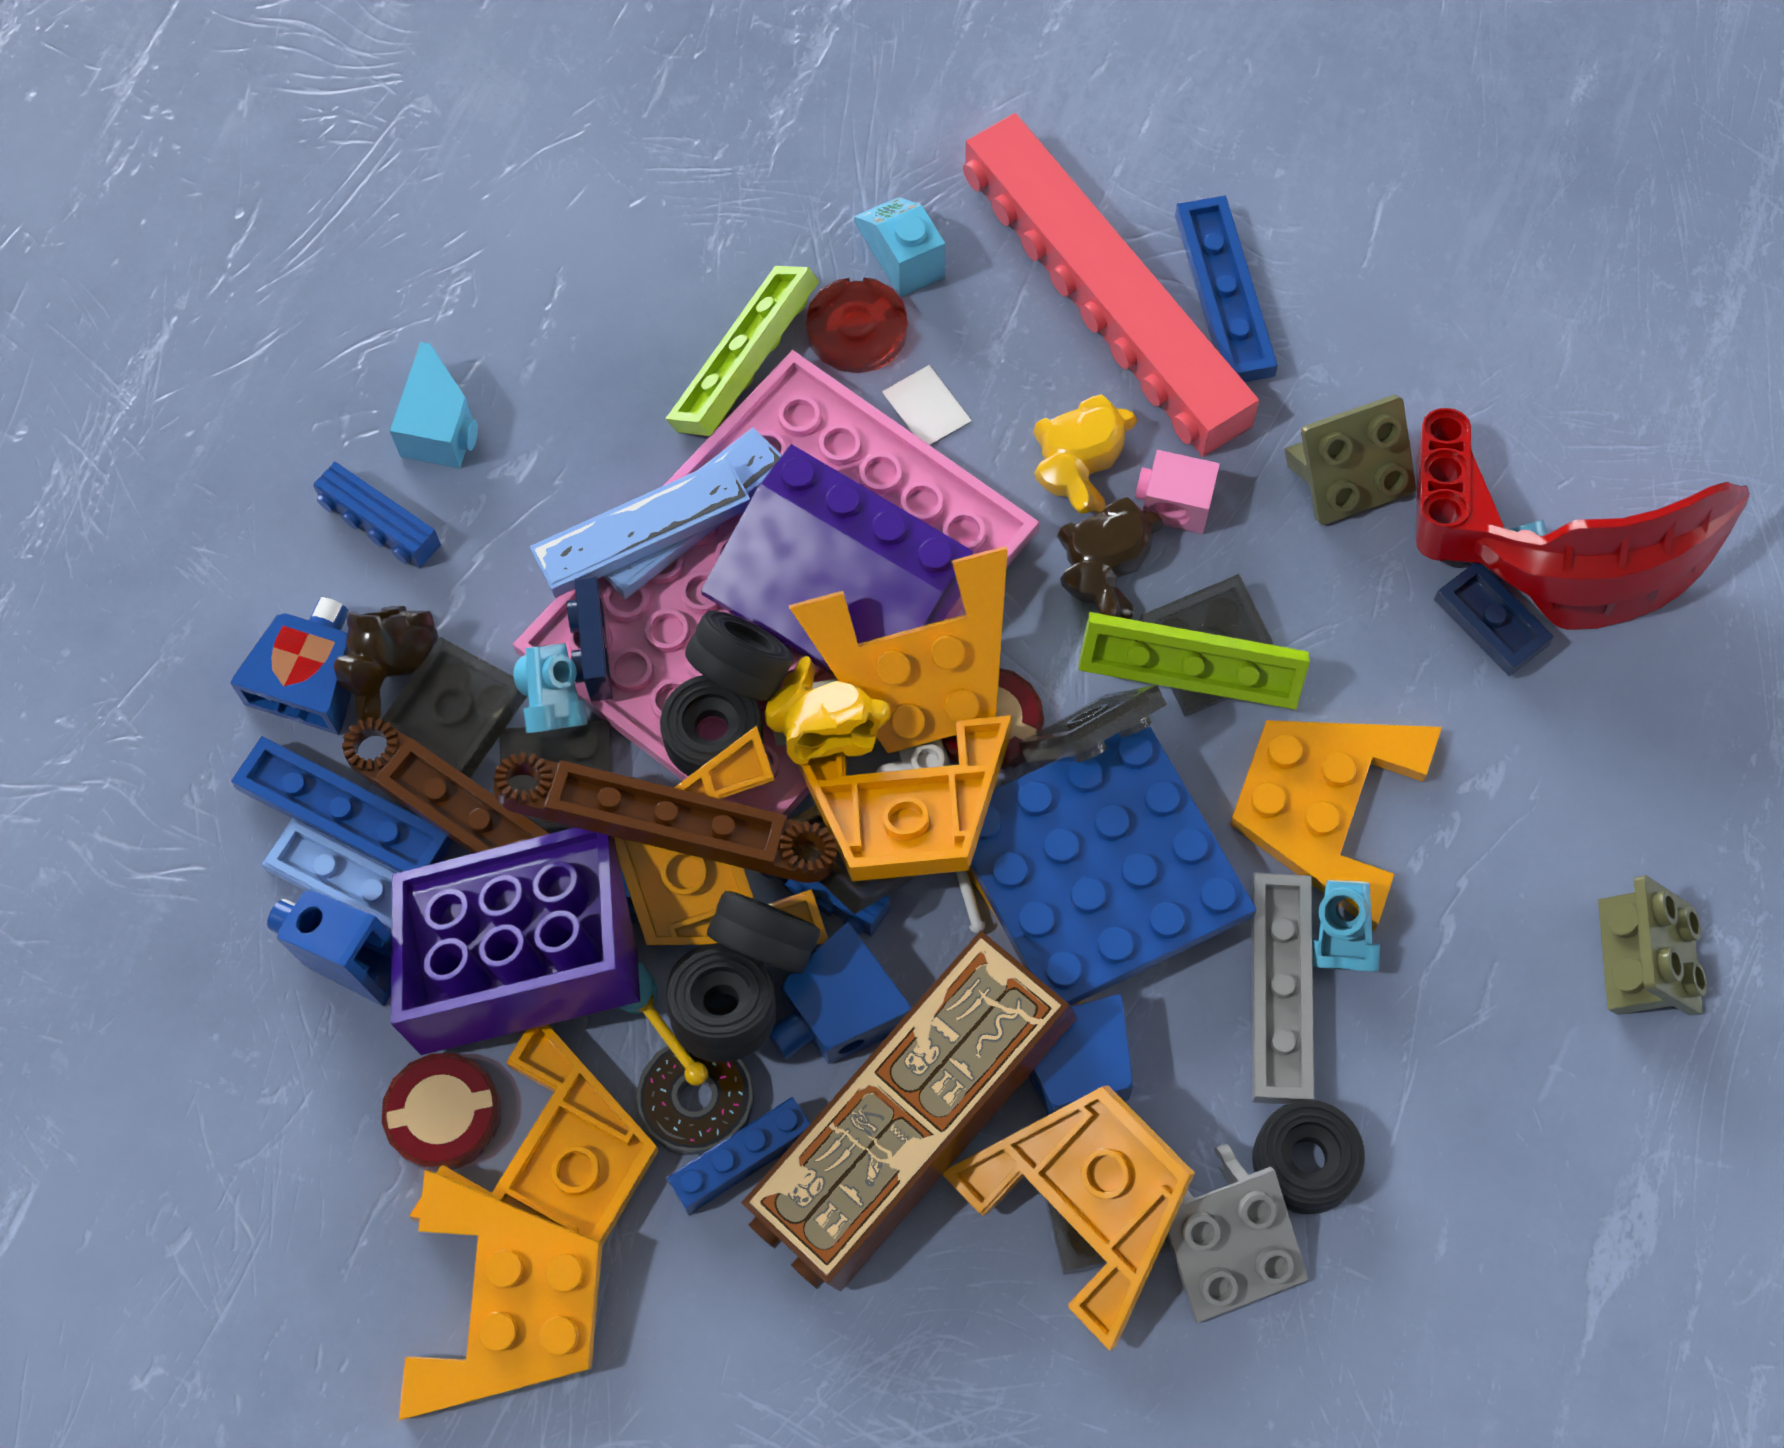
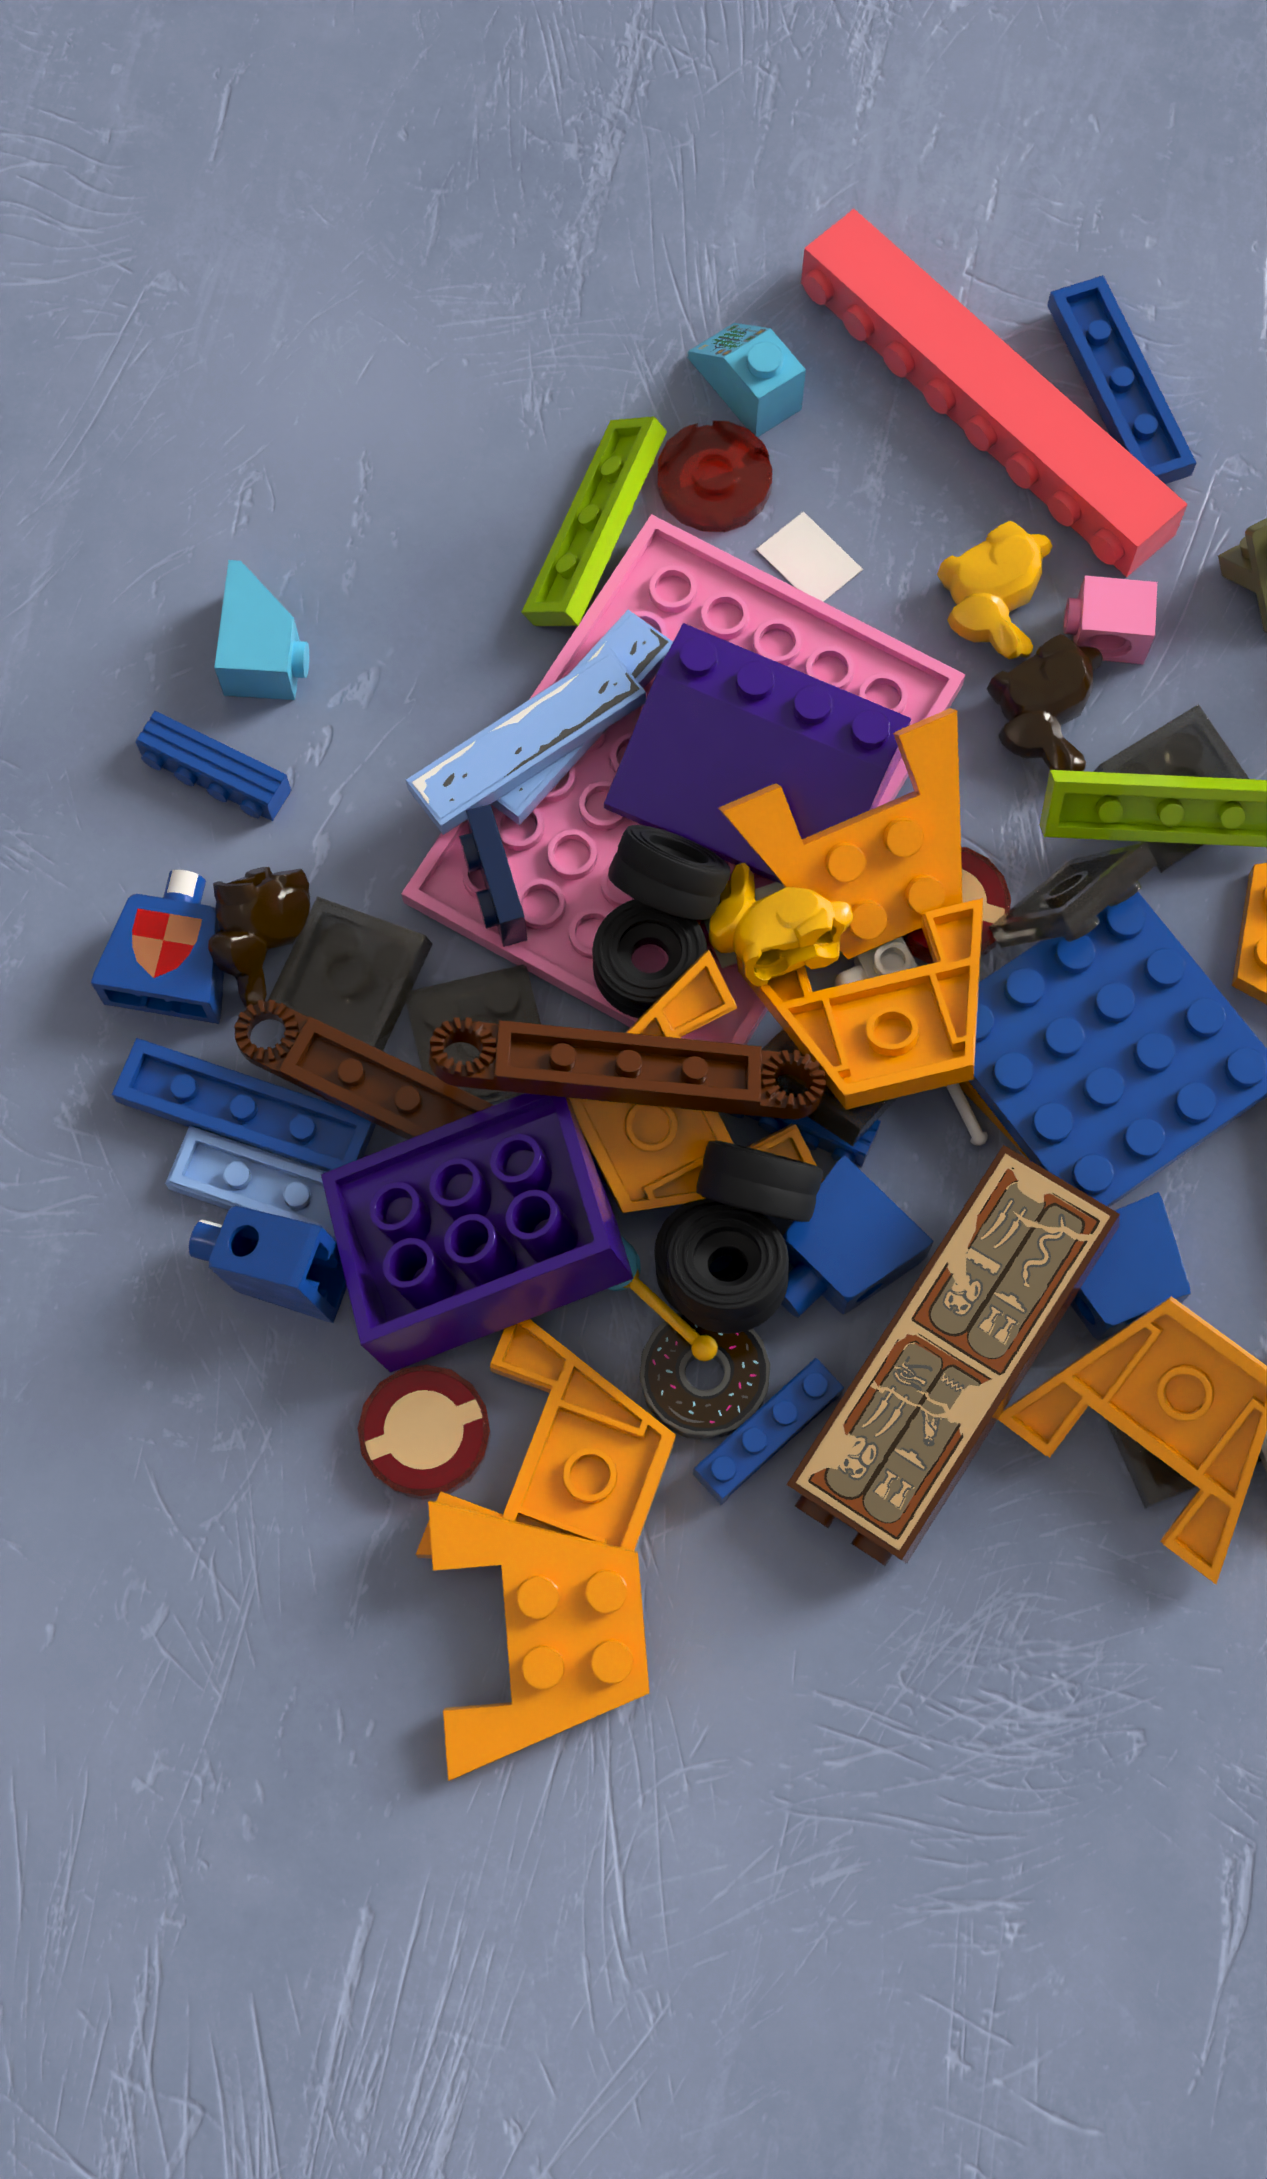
camera: 10 degrees left, 5 degrees up
(548, 681) = (456, 930): medium azure plate -> none

